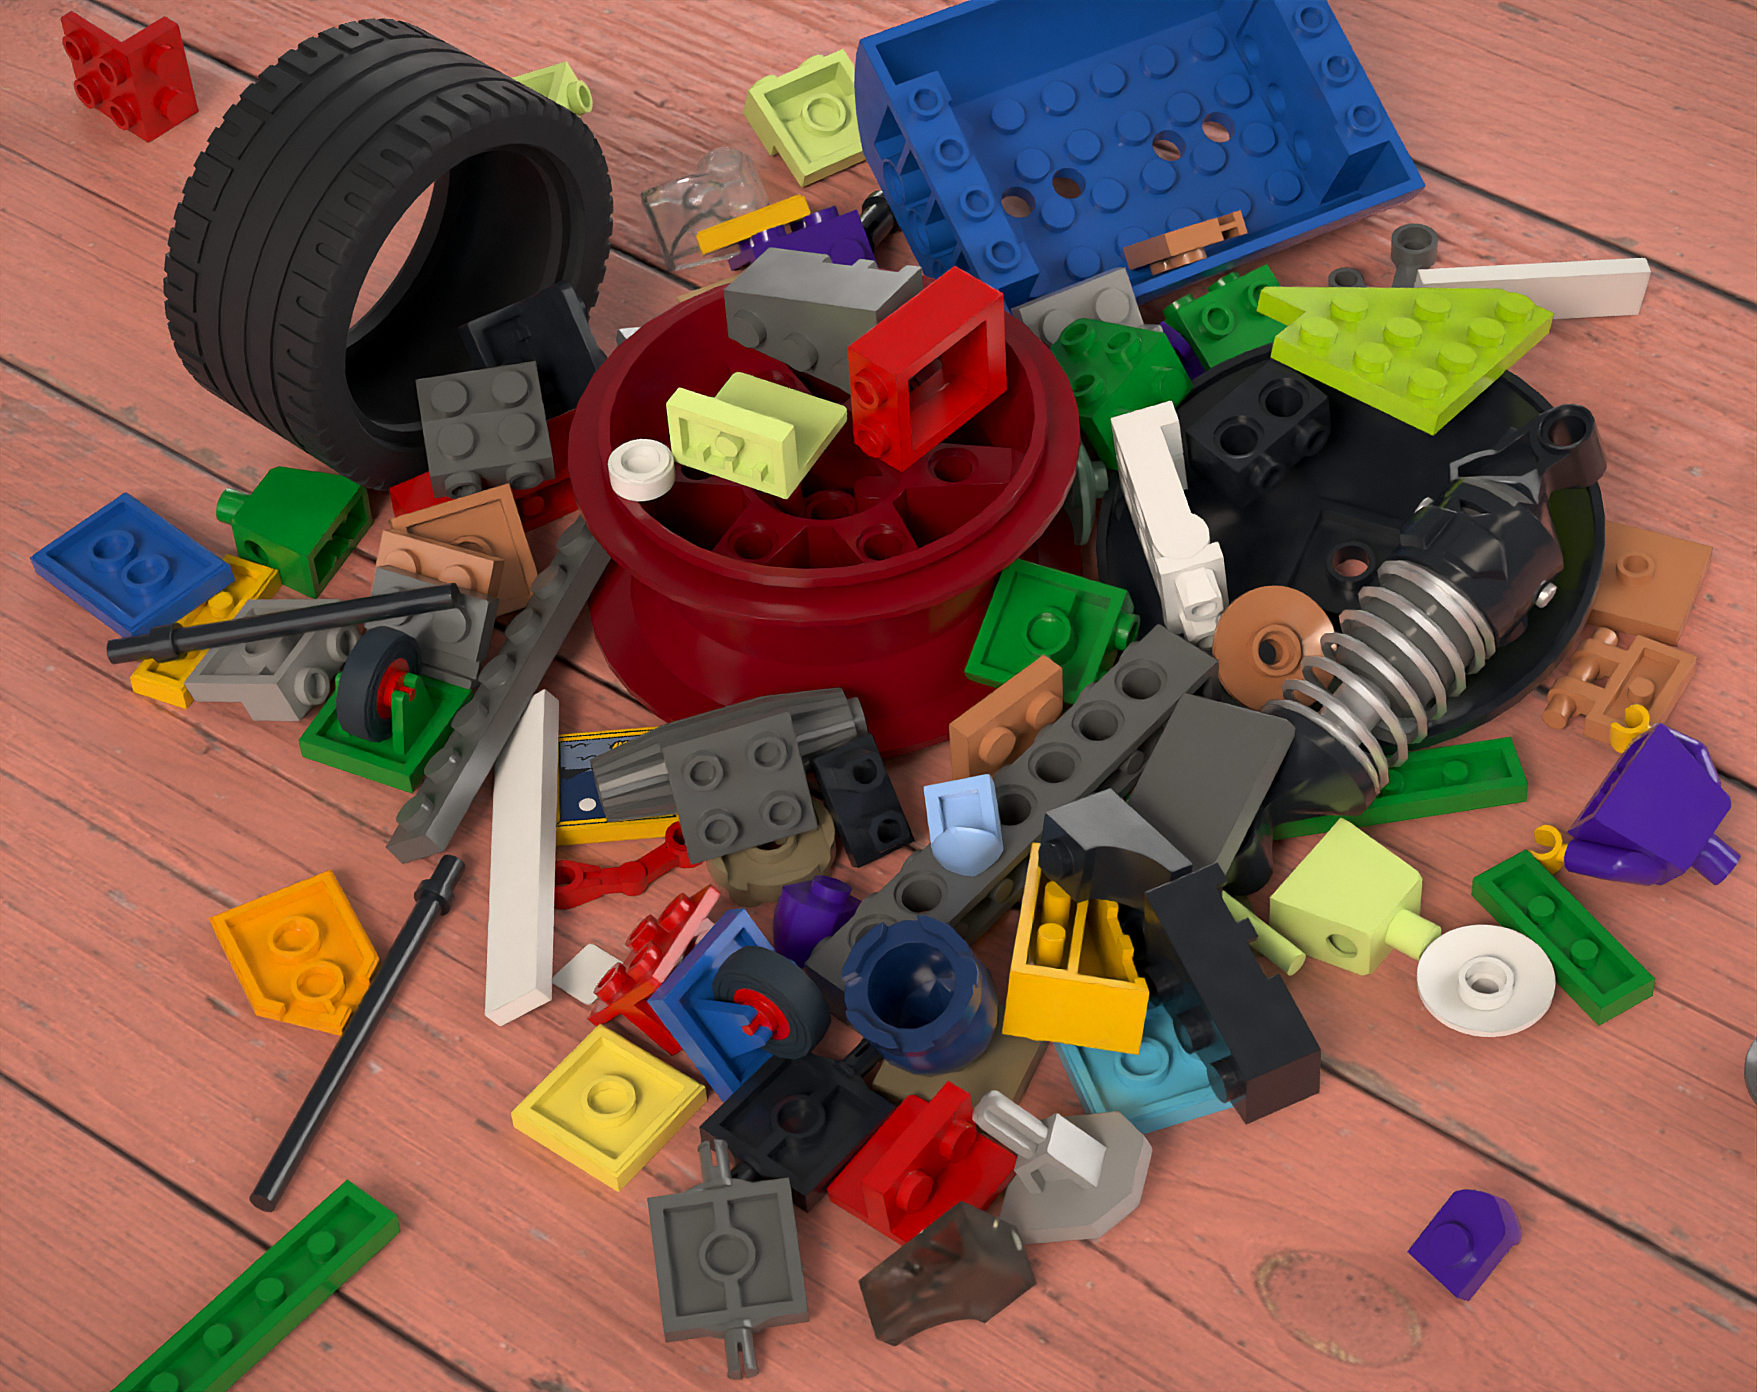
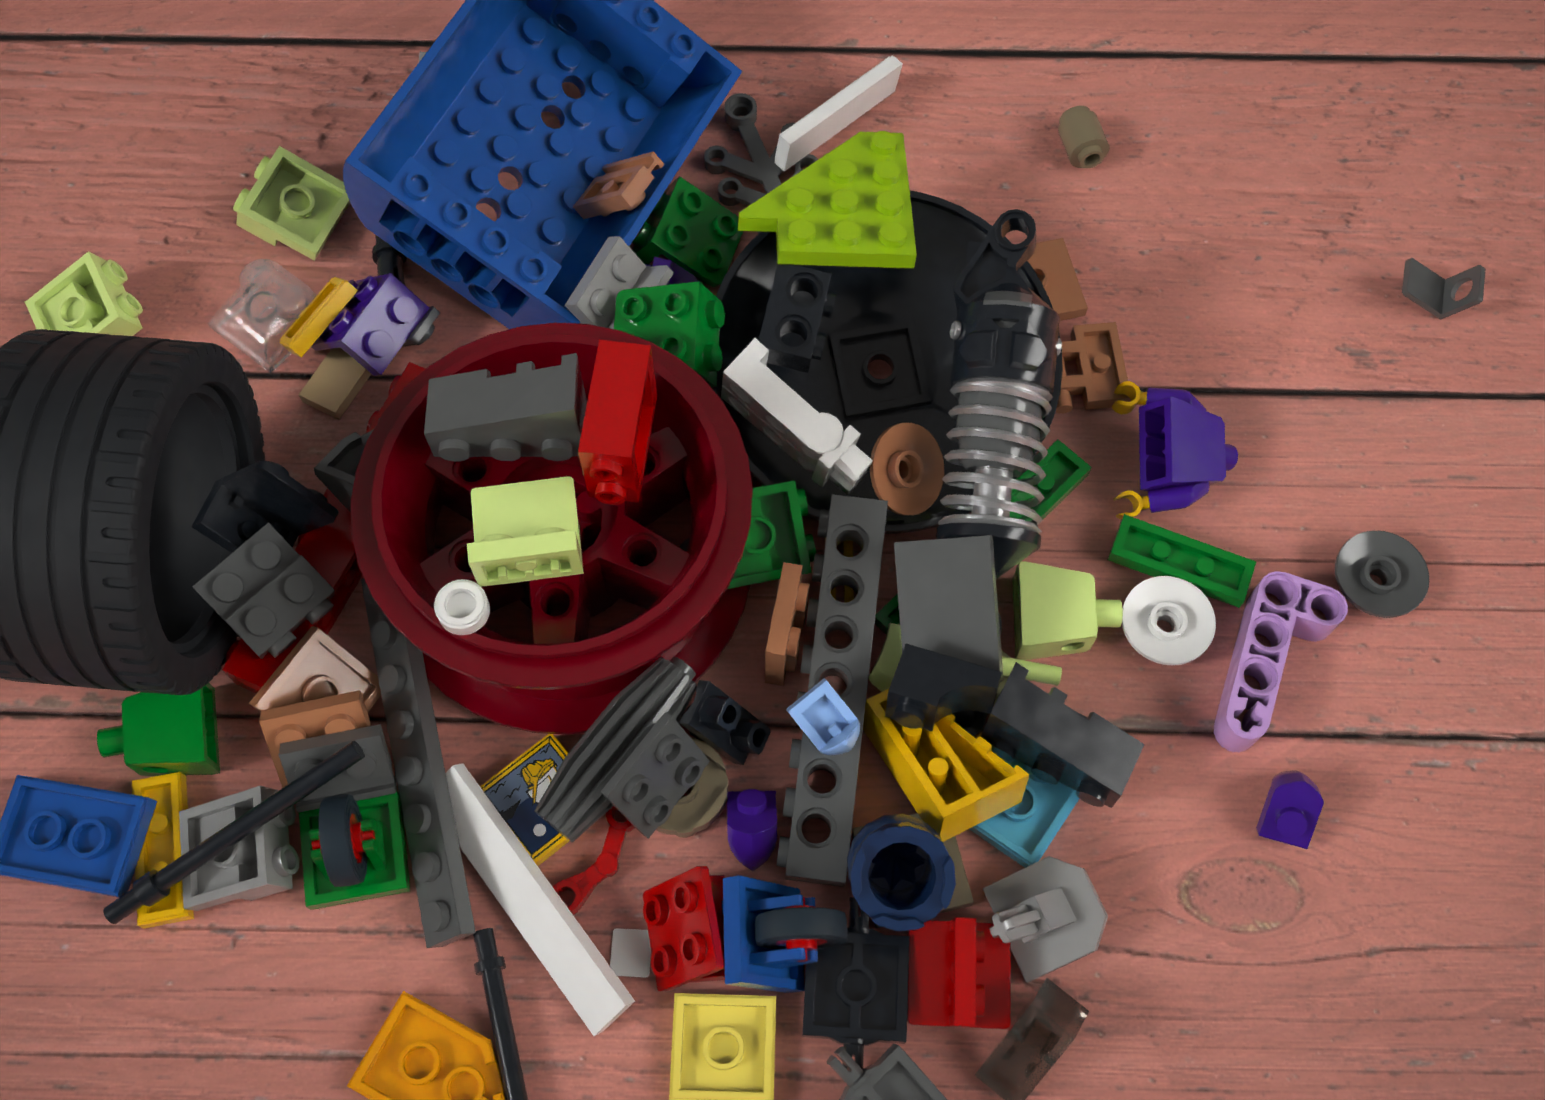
camera: 40 degrees left, 20 degrees up
(1621, 1044) = (1267, 663): none -> lavender beam

